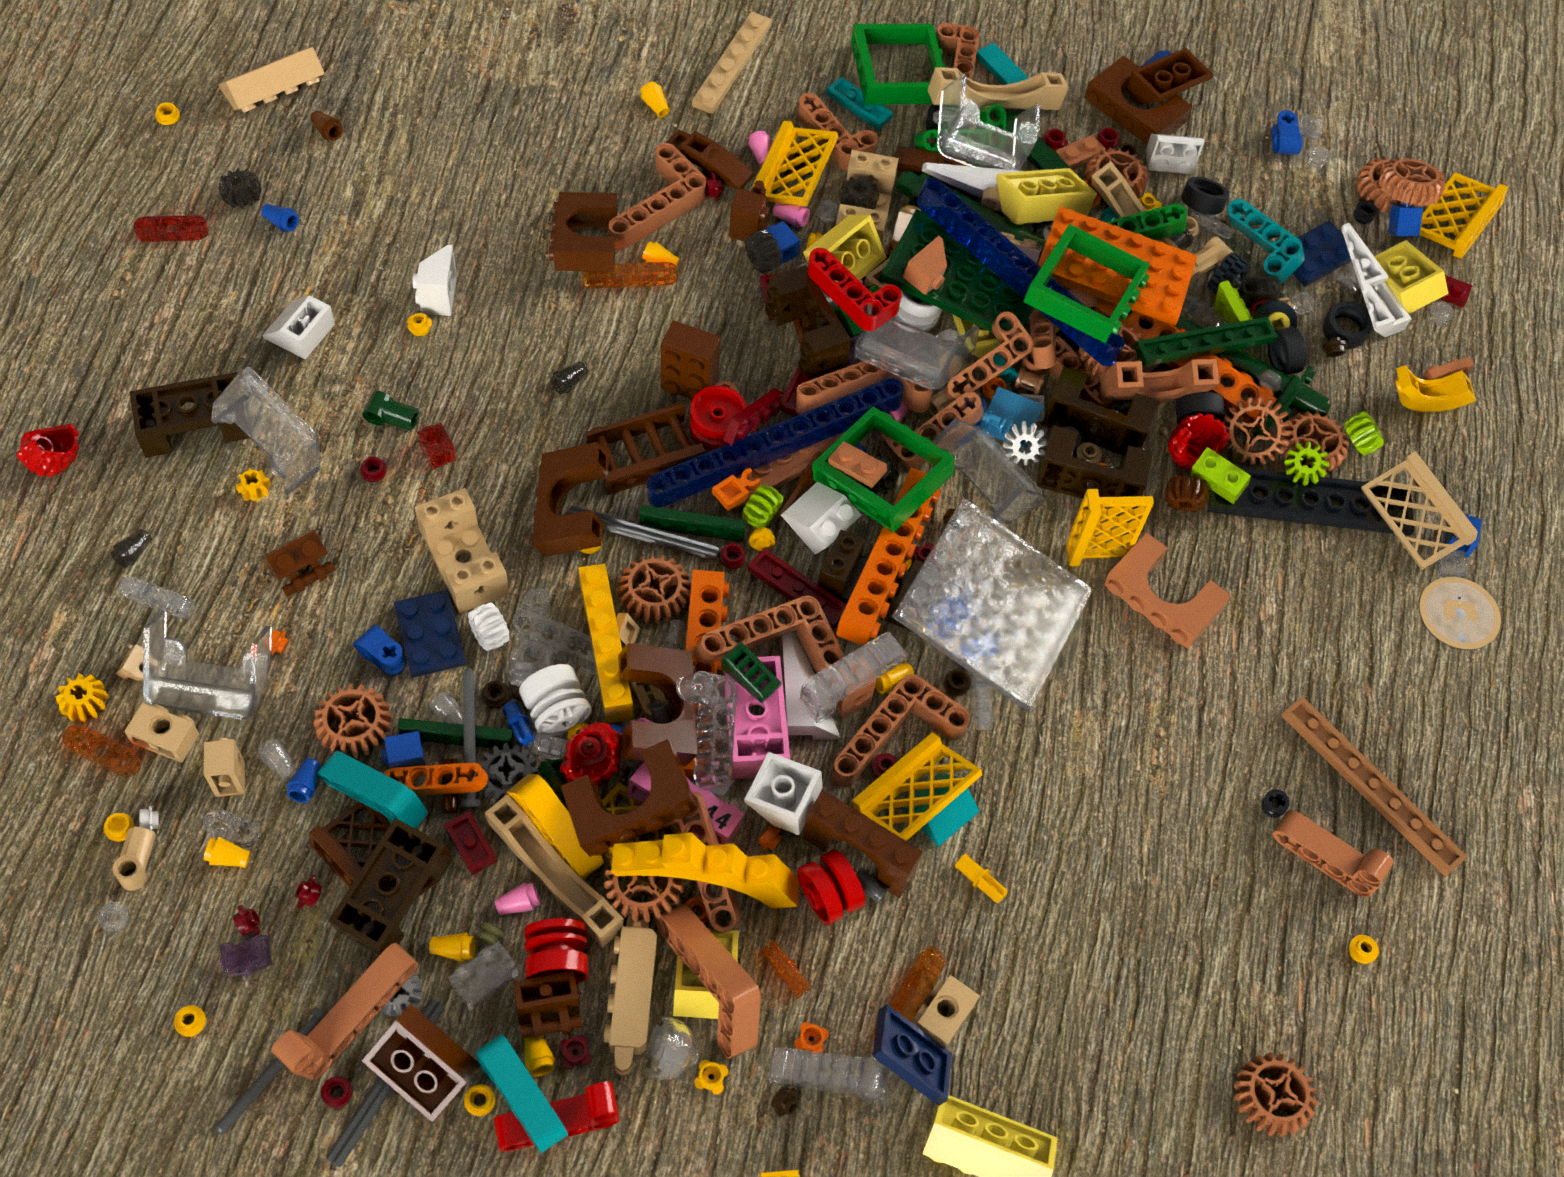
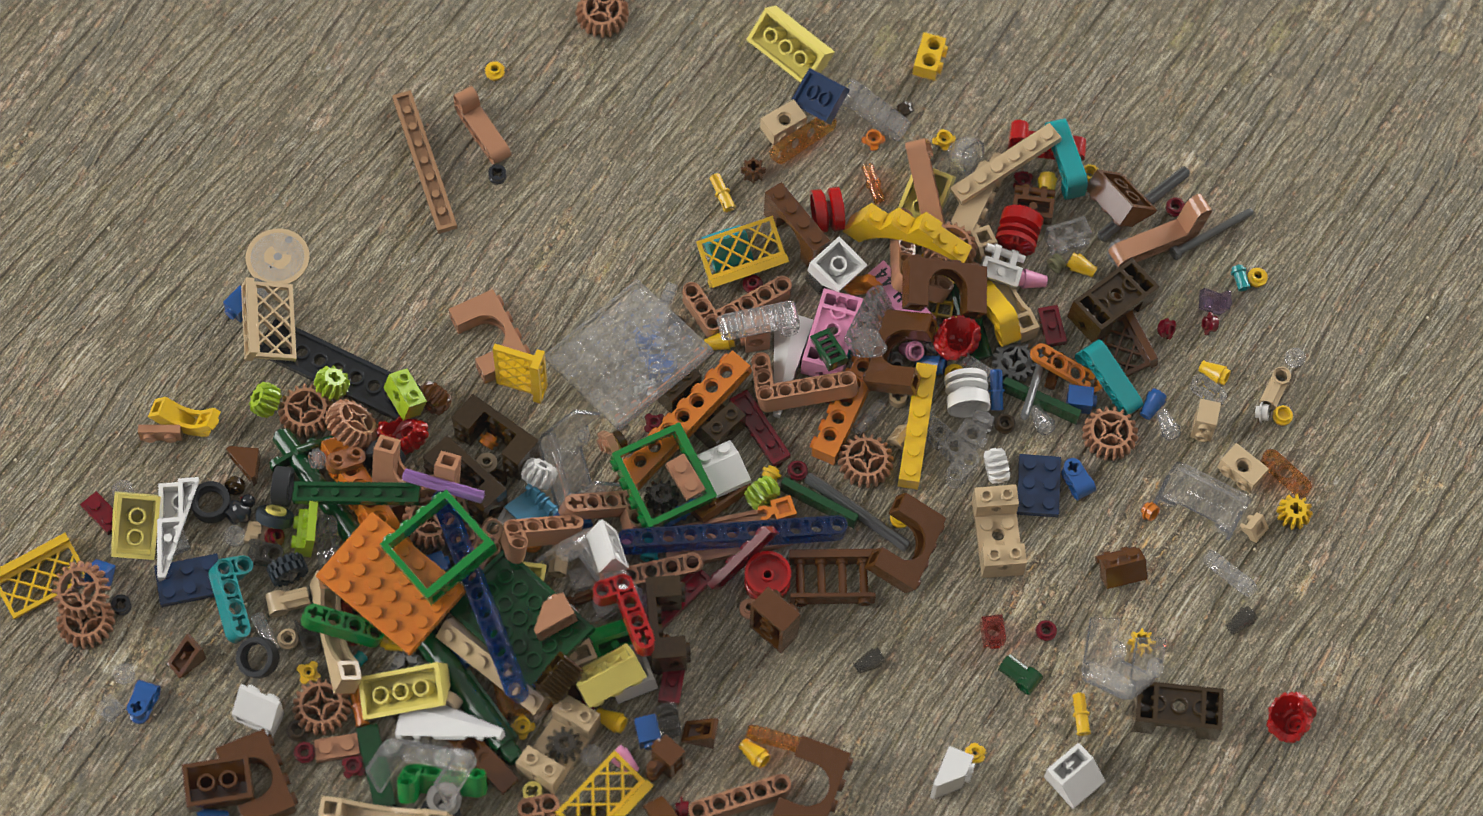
camera: 155 degrees left, 5 degrees up
(214, 1010) = (1240, 276): none -> teal pin
(307, 393) = (1081, 714): none -> yellow axle
(559, 878) = (1001, 271): none -> white plate
(603, 1039) = (1005, 164): none -> tan plate
(723, 258) = (701, 732): none -> reddish brown slope
(734, 794) = (861, 284): none -> orange plate
(894, 218) = (558, 678): none -> dark brown brick
(904, 356) = (606, 548): none -> white slope
(952, 931) = (750, 165): none -> reddish brown gear
(961, 488) = (607, 442): none -> nougat plate
(1106, 360) = (440, 484): none -> medium lavender axle
(1239, 381) = (348, 459): none -> dark orange plate
(1269, 186) = (186, 656): none -> reddish brown slope
(1314, 322) = (240, 511): none -> black animal
(1339, 372) = (246, 460): none -> reddish brown slope

